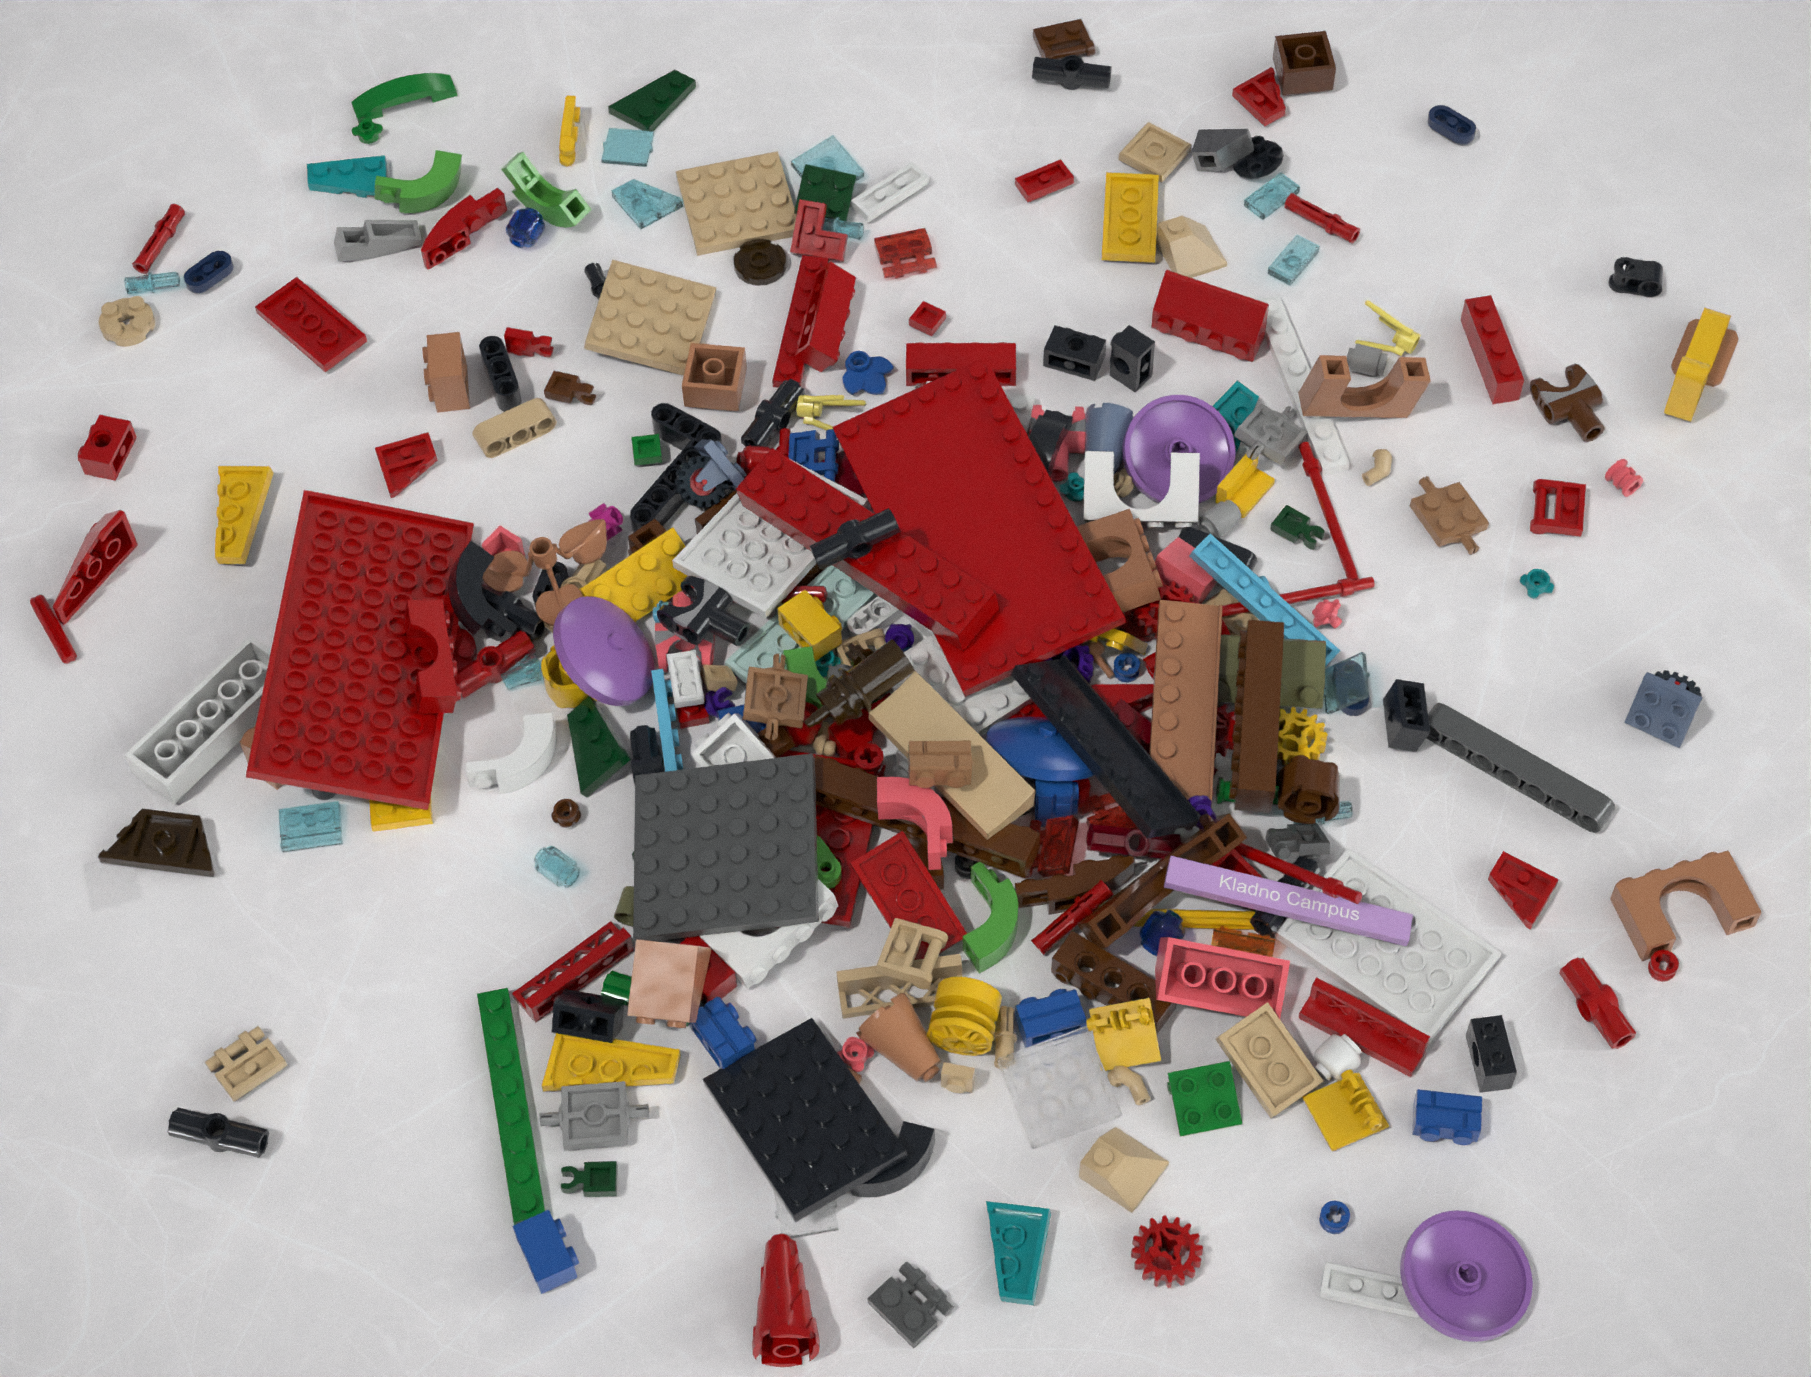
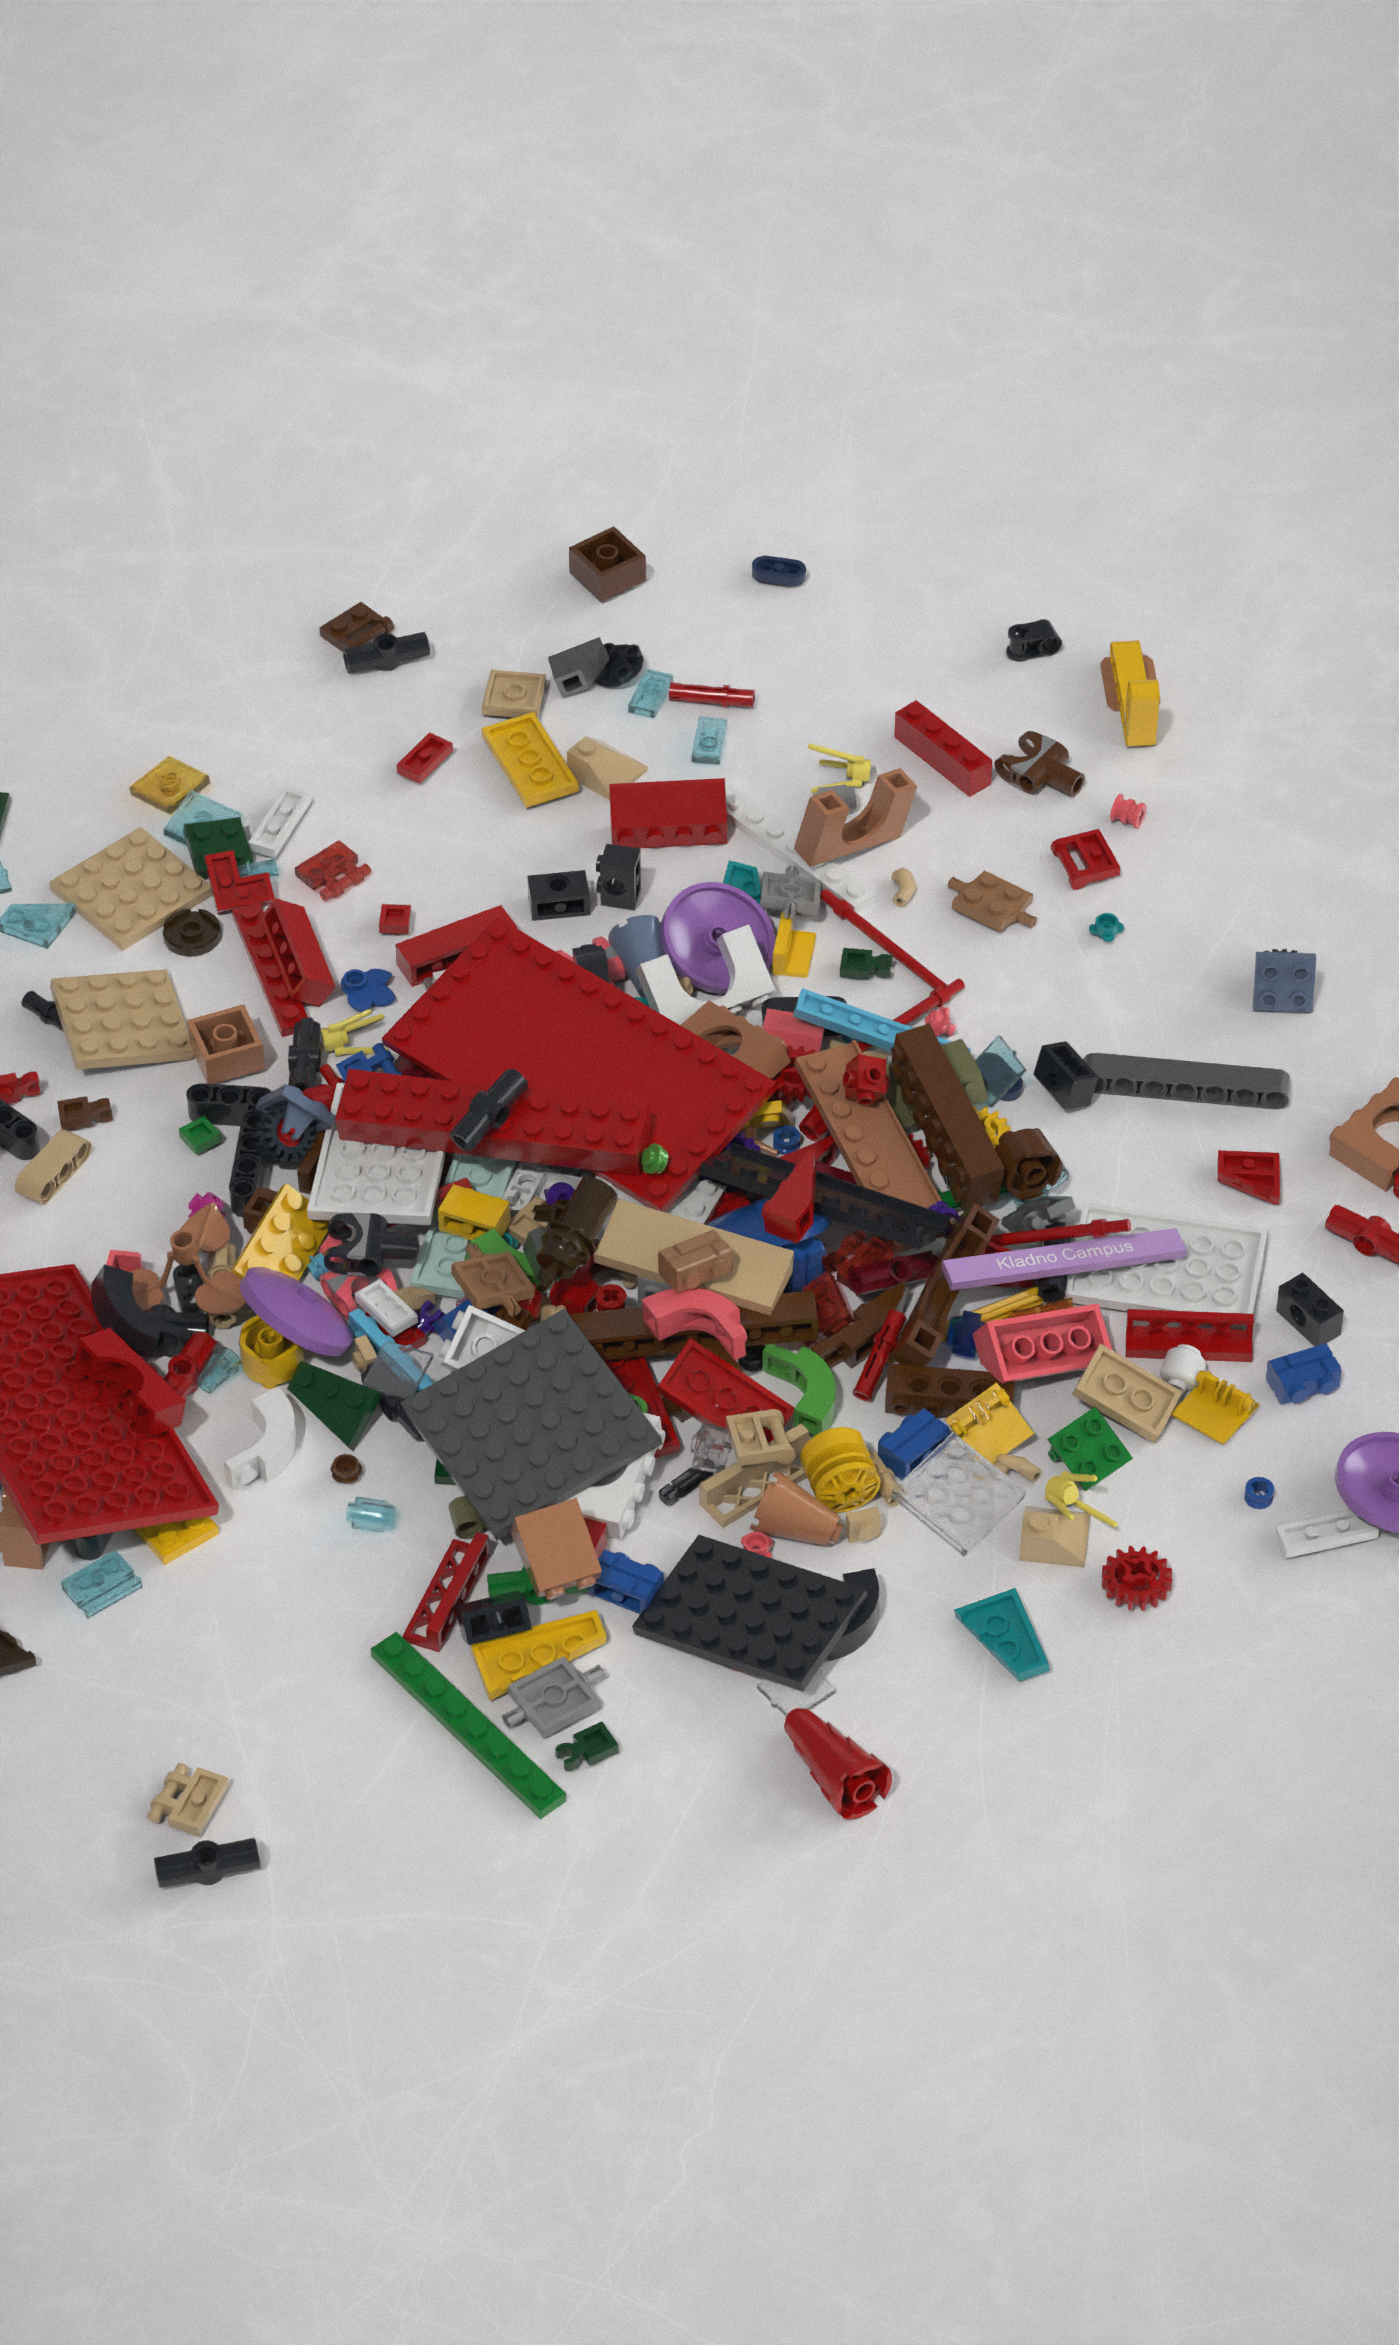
camera: 30 degrees left, 10 degrees down
(545, 1251) = (589, 1817): blue brick -> none
(645, 712) = (363, 1354): none -> tan plate
(656, 742) = (398, 1370): none -> clear piece
(822, 121) = (169, 784): none -> clear yellow plate
(836, 960) = (682, 1485): none -> black axle
(867, 941) = (711, 1448): none -> clear brick
(902, 1311) = (939, 1726): dark grey plate -> none
(978, 643) = (654, 1159): none -> bright green plate
(1059, 746) = (792, 1207): none -> red slope
(1153, 1130) = (1063, 1491): none -> light yellow plant
(1203, 649) = (865, 1079): none -> red brick
(1220, 518) = (790, 980): light grey brick -> none
(1261, 97) = (584, 610): red wing -> none

